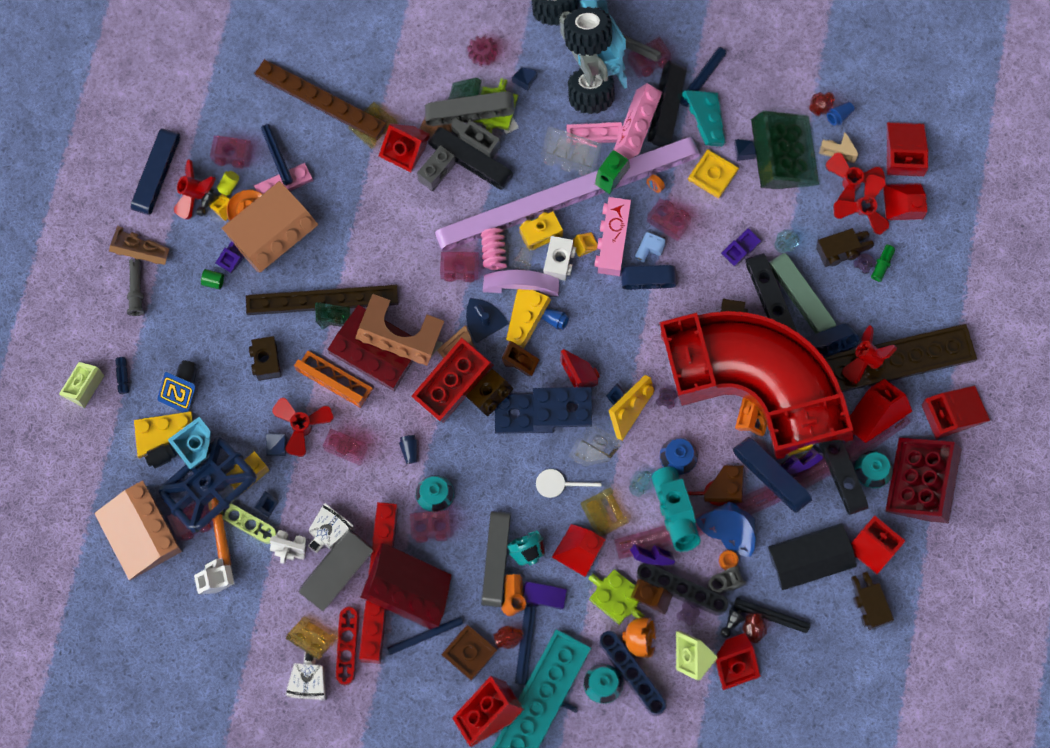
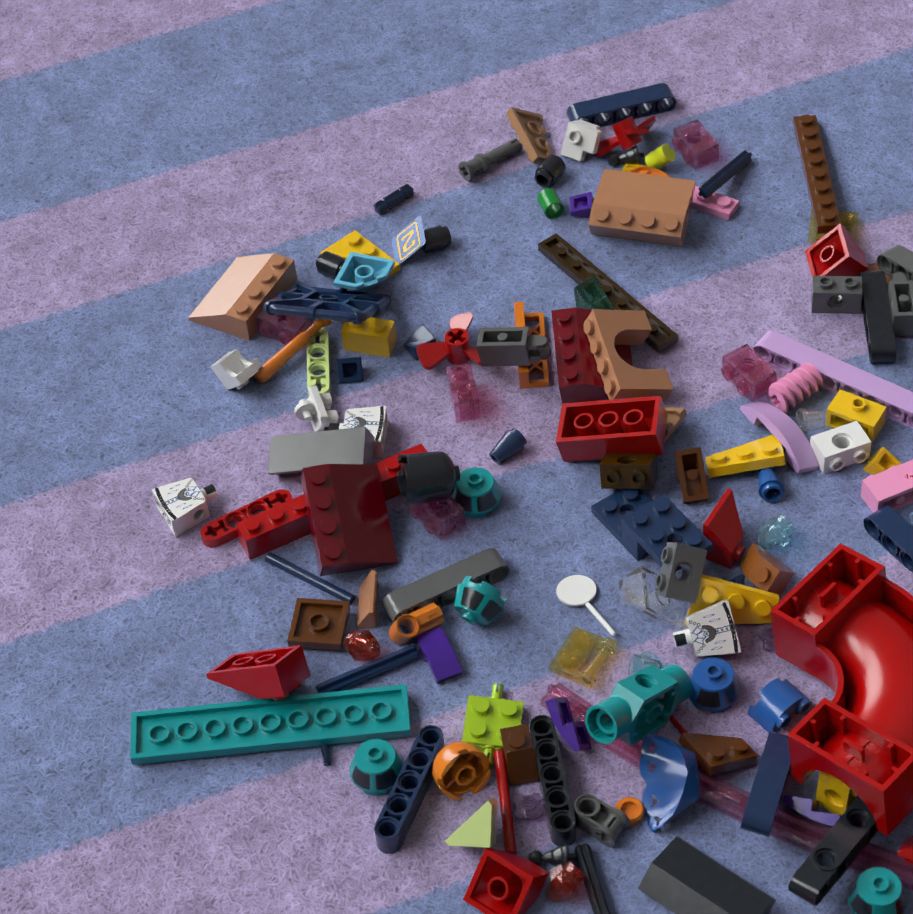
camera: 60 degrees right, 25 degrees down
(82, 384) = (359, 179): yellowish green slope -> none
(169, 218) = (580, 139): none -> white brick
(180, 258) = (549, 171): none -> black brick
(265, 347) = (504, 284): dark brown brick -> none
(311, 638) = (225, 478): clear yellow plate -> none
(343, 396) = (511, 346): none -> dark grey hinge
(418, 519) = (427, 477): none -> black cylinder
(472, 612) = (368, 602): none -> nougat slope
(483, 319) = (711, 430): dark blue shield -> none
(579, 549) = (519, 660): red slope -> none
(595, 342) = (775, 532): none -> clear light blue rock
(602, 421) = (692, 564): none -> dark grey brick
(619, 369) = (765, 570): none -> dark orange slope
(645, 431) = (710, 631): none -> white torso
(676, 625) = (505, 802): none -> red bar
(716, 429) = (777, 704): none -> blue cylinder

